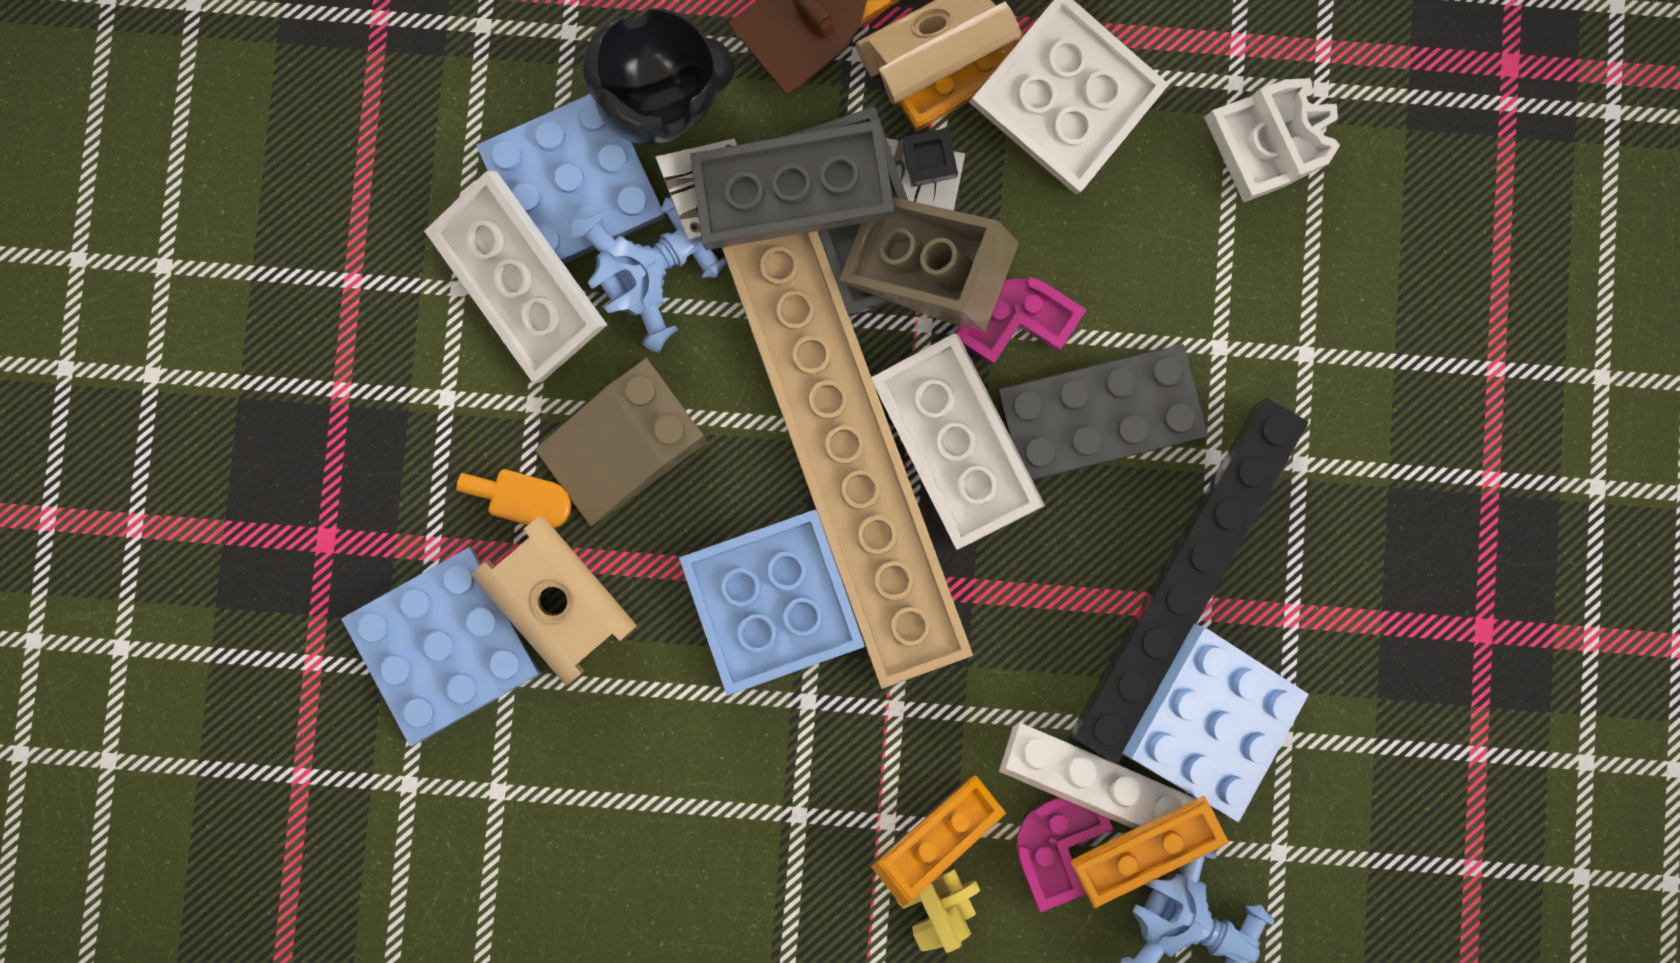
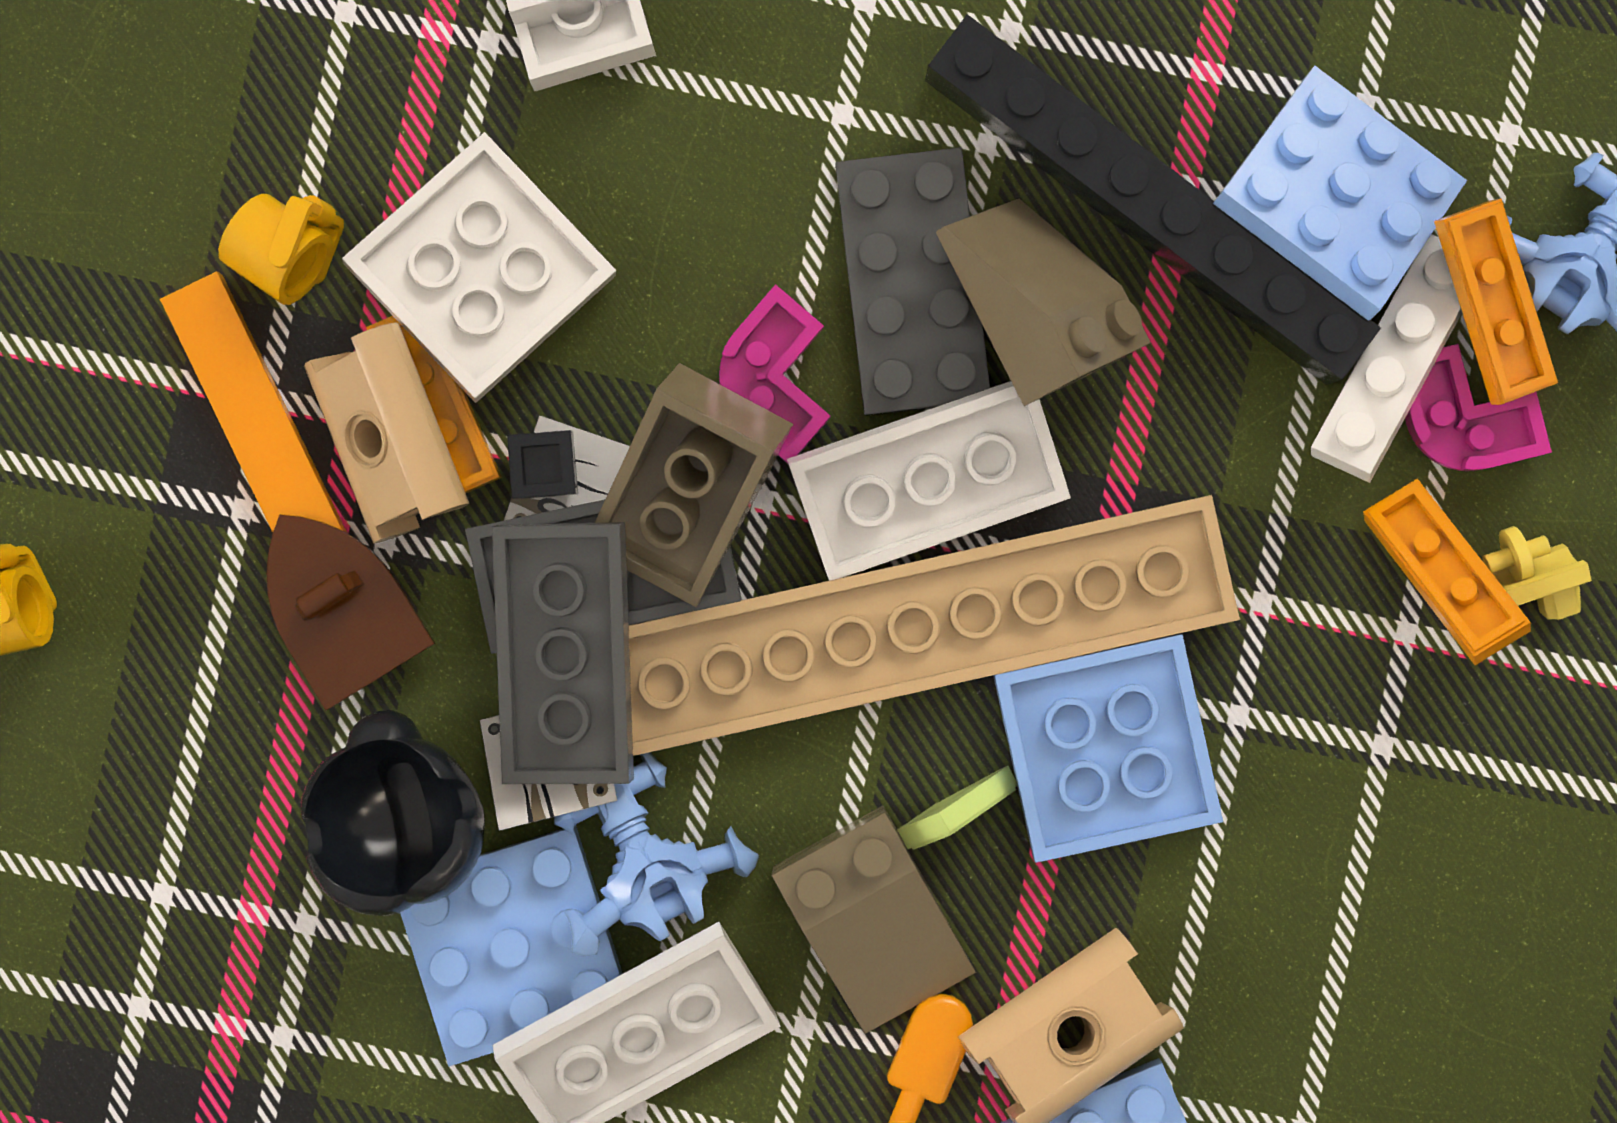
camera: 80 degrees left, 5 degrees up
(712, 495) = (958, 809): none -> yellowish green tile
(1102, 505) = (1040, 299): none -> dark tan slope

